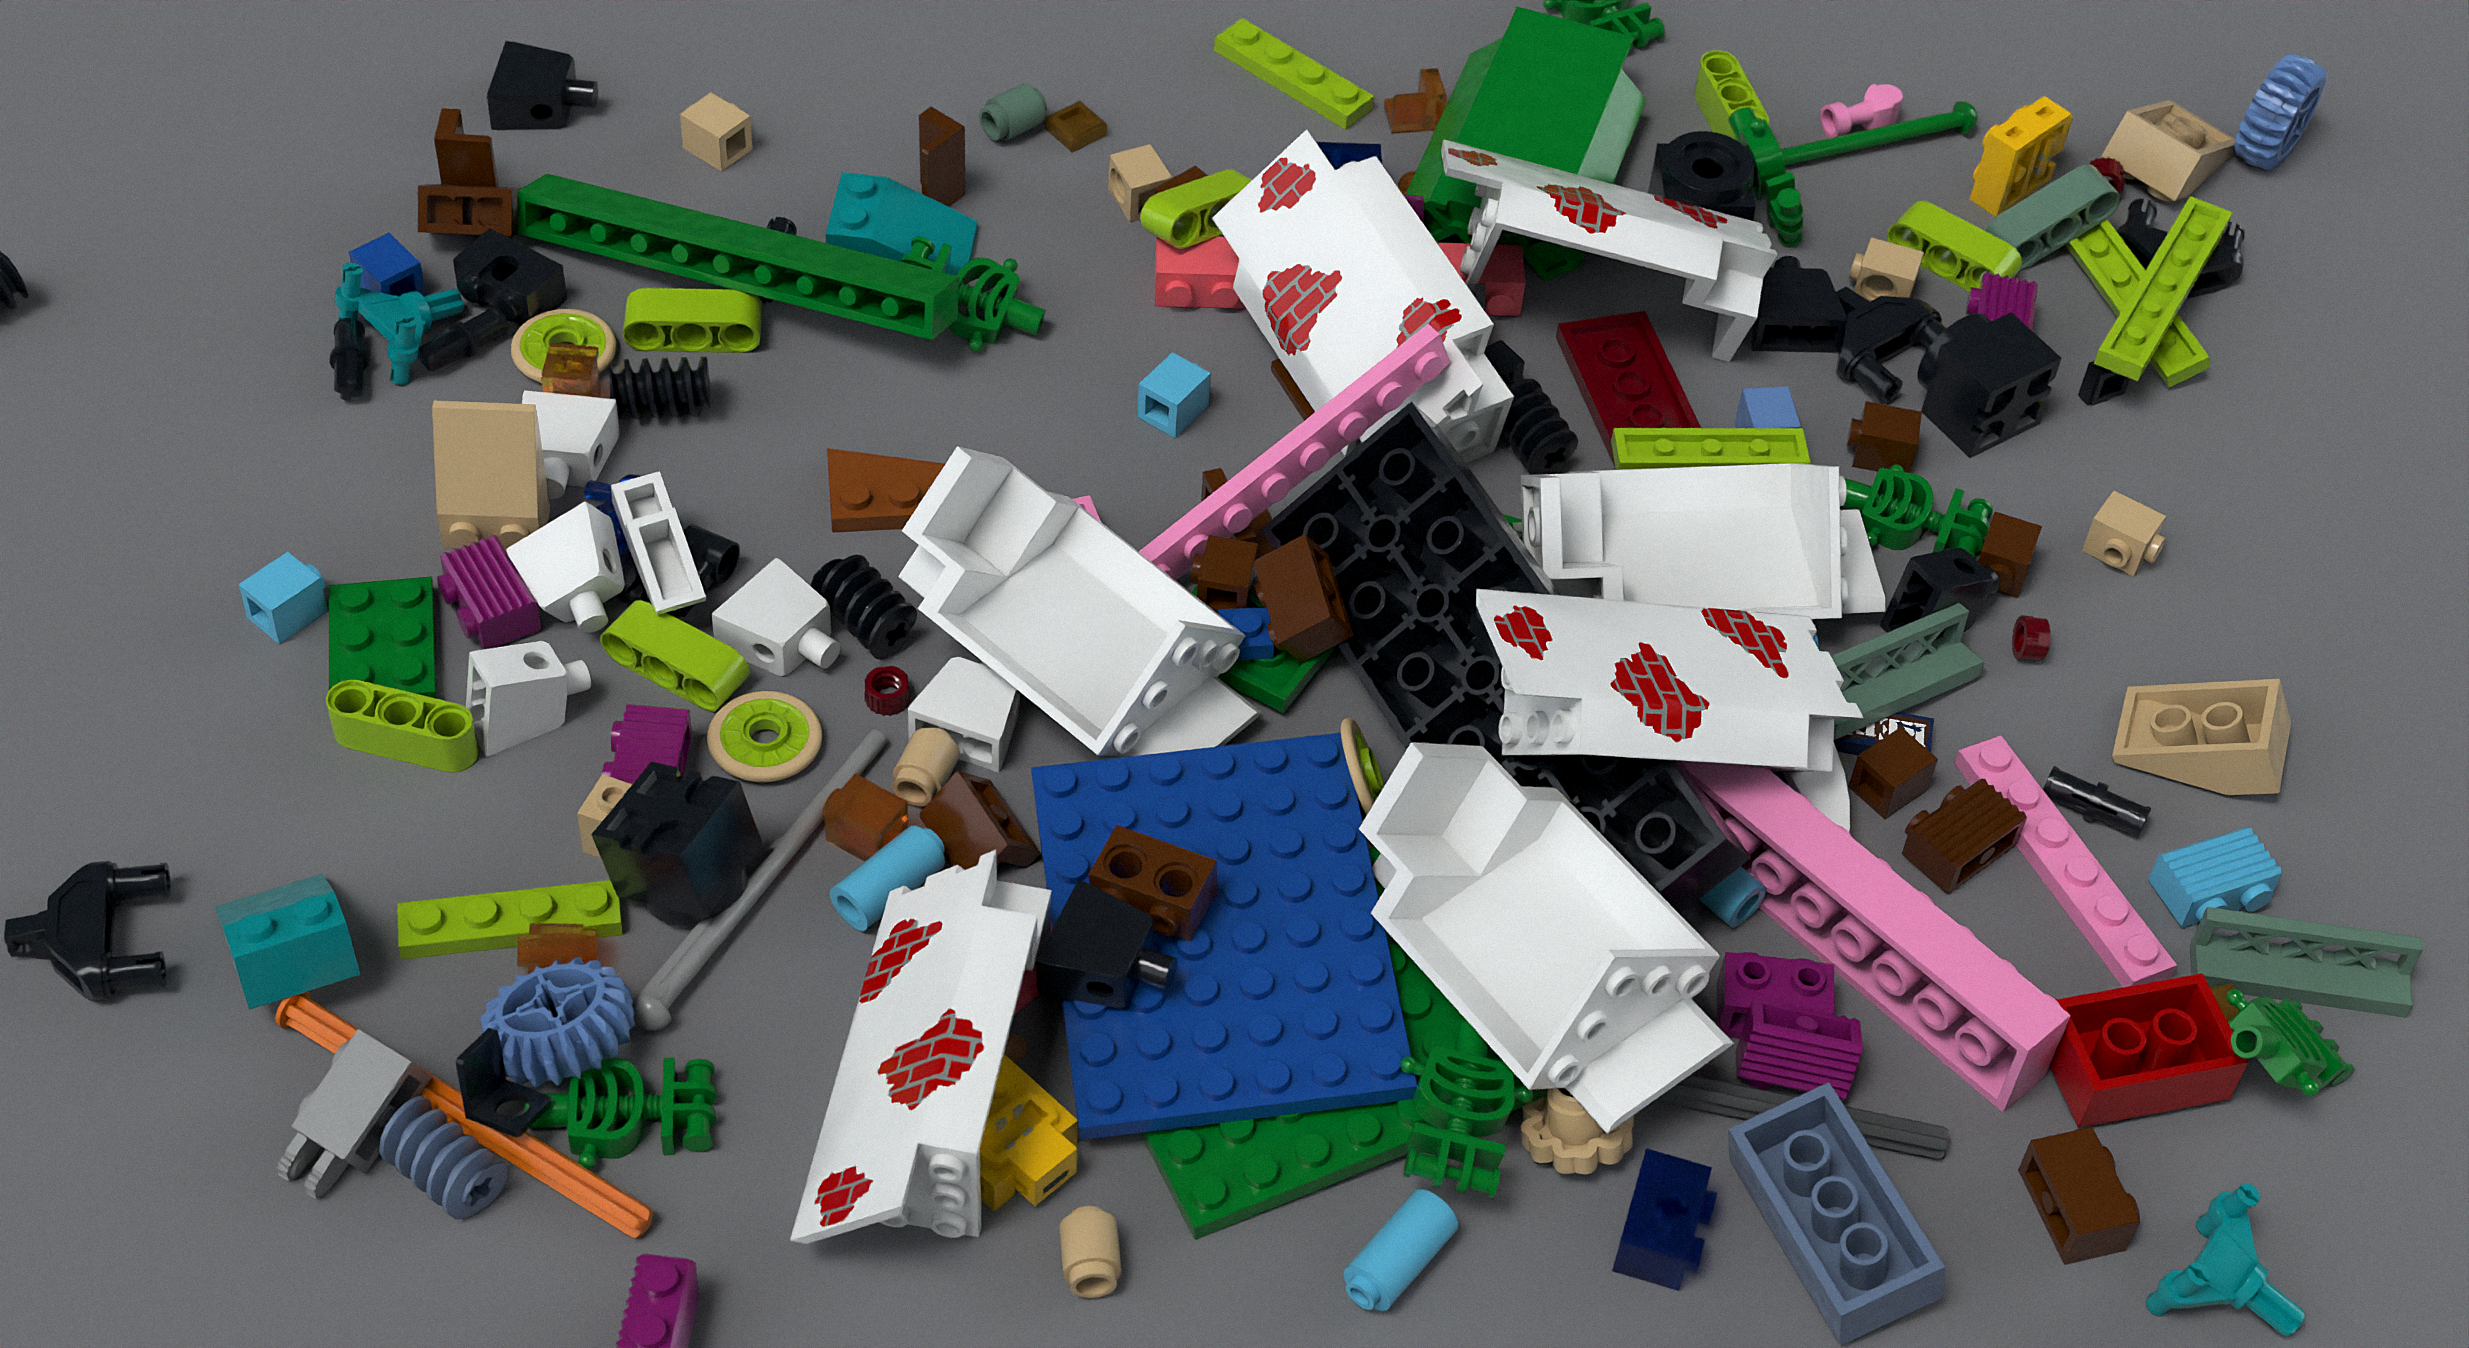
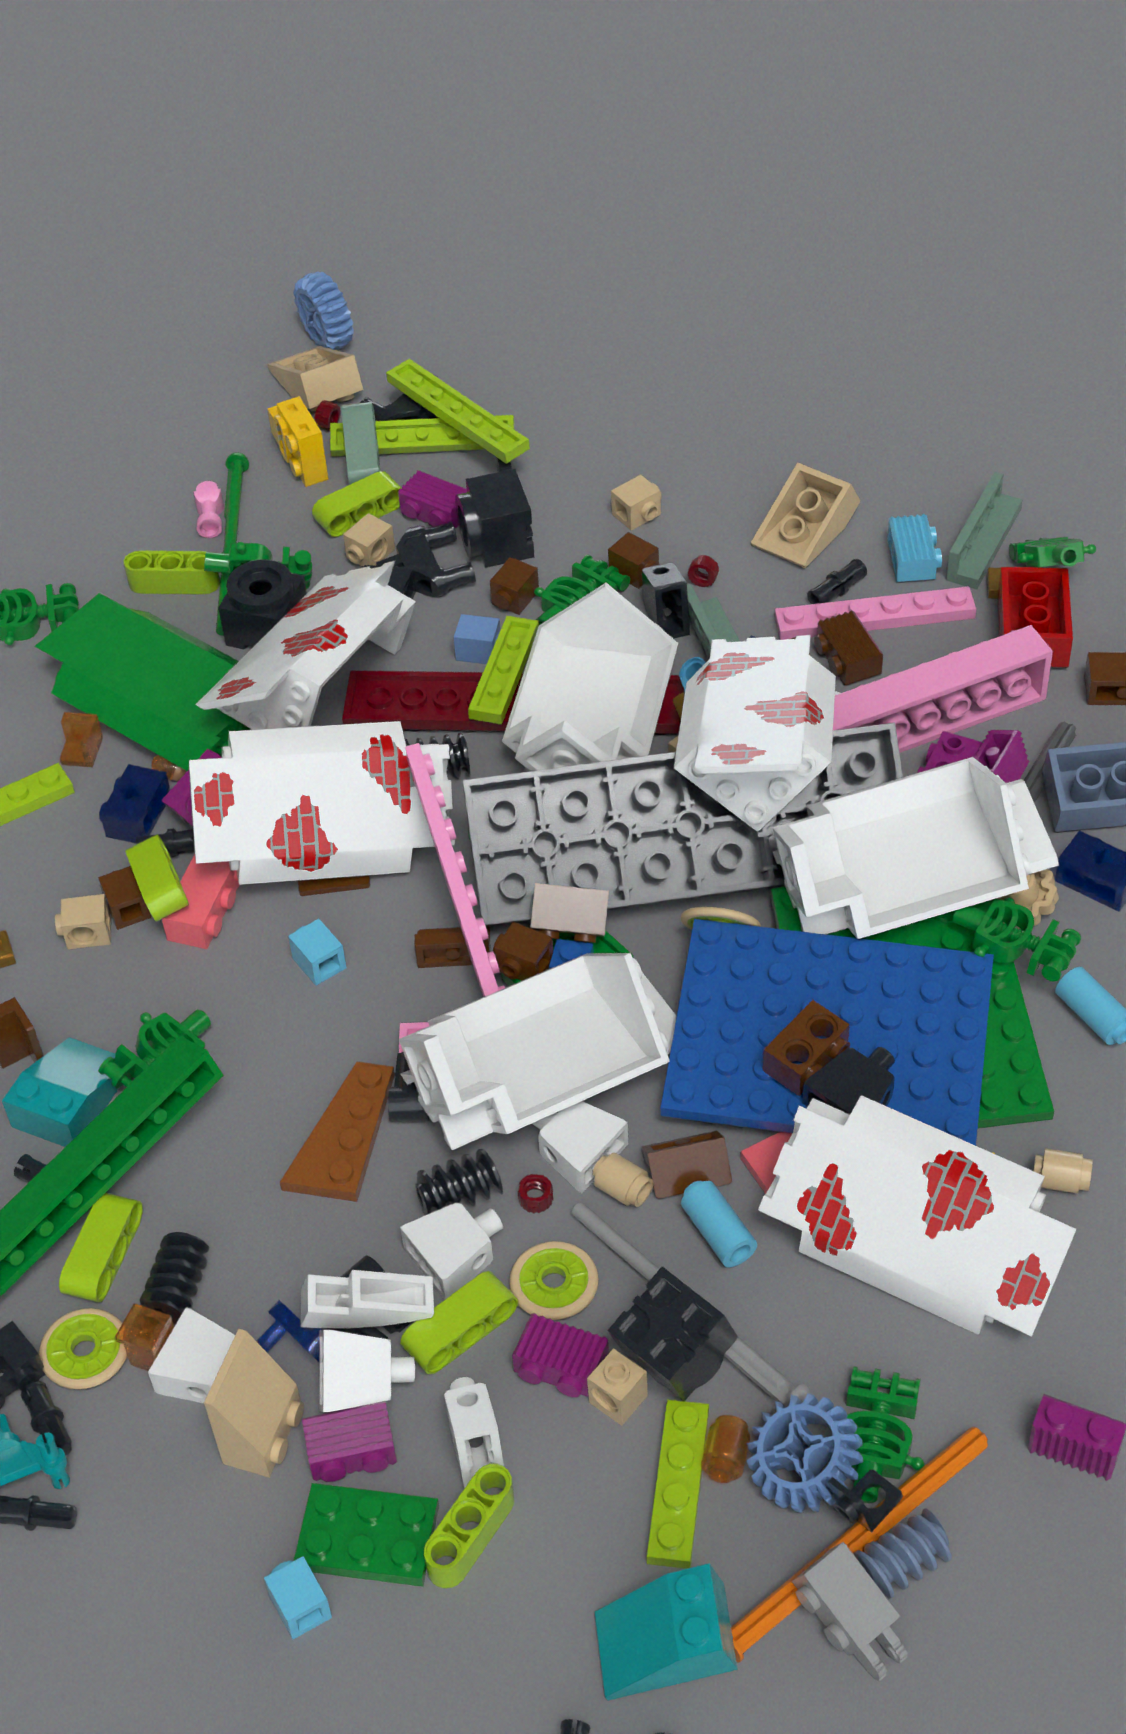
camera: 65 degrees left, 0 degrees up
(863, 817) = (662, 1226): clear orange brick -> none

